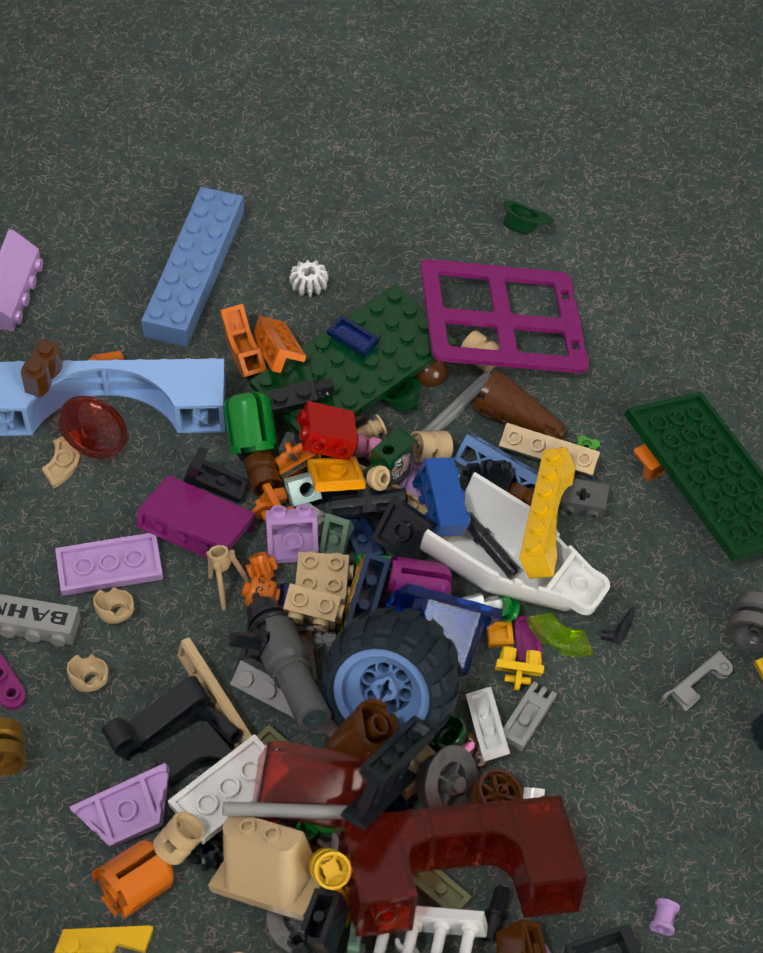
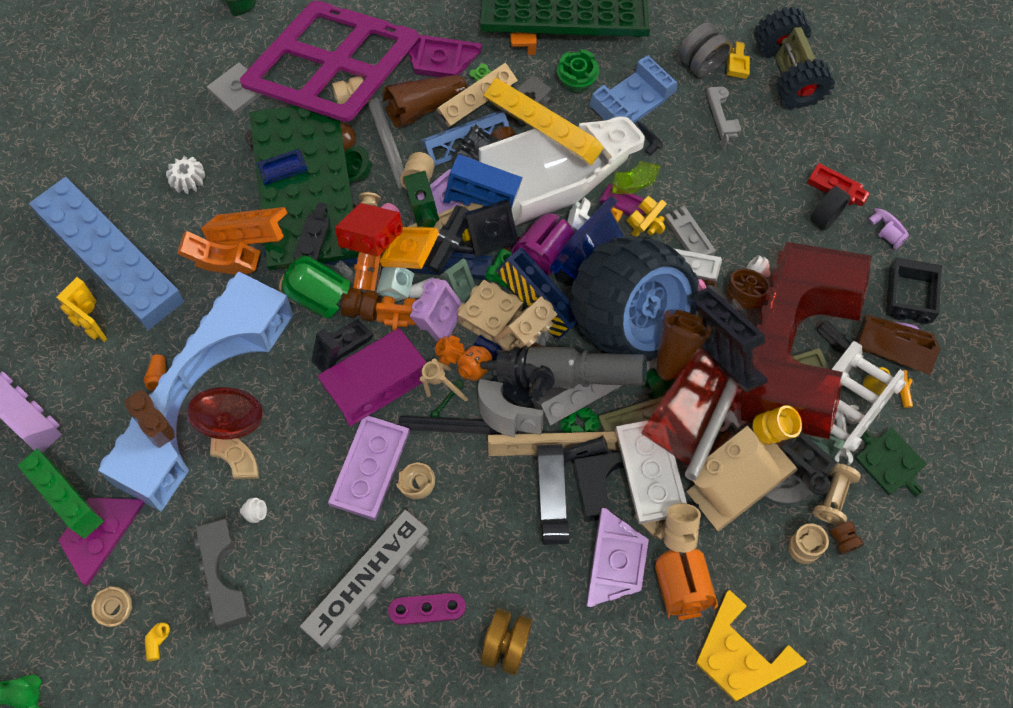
camera: 60 degrees left, 10 degrees up
(19, 499) = (254, 510): none -> white plate
(80, 668) = (479, 530): tan hair -> none
(128, 269) = (77, 303): none -> yellow bracket
(192, 590) = (435, 413): none -> dark green hinge
(192, 615) = (442, 424): none -> black axle
(216, 634) = (503, 415): none -> light grey arch
(256, 724) = (584, 413): none -> green gear
(378, 477) = (439, 216): tan plate -> none
(411, 272) = (229, 90): none -> light grey plate
(492, 547) = (543, 179): black pin -> none
(510, 608) = (596, 198): green plate -> none
(581, 404) = (442, 56): none -> magenta wing
(645, 521) = (578, 70): none -> green cone
(648, 832) = (830, 207): none -> black tyre
(659, 589) = (636, 94): none -> medium blue plate
(685, 896) = (886, 217): none -> lavender bar
(690, 833) = (826, 178): none -> red hinge

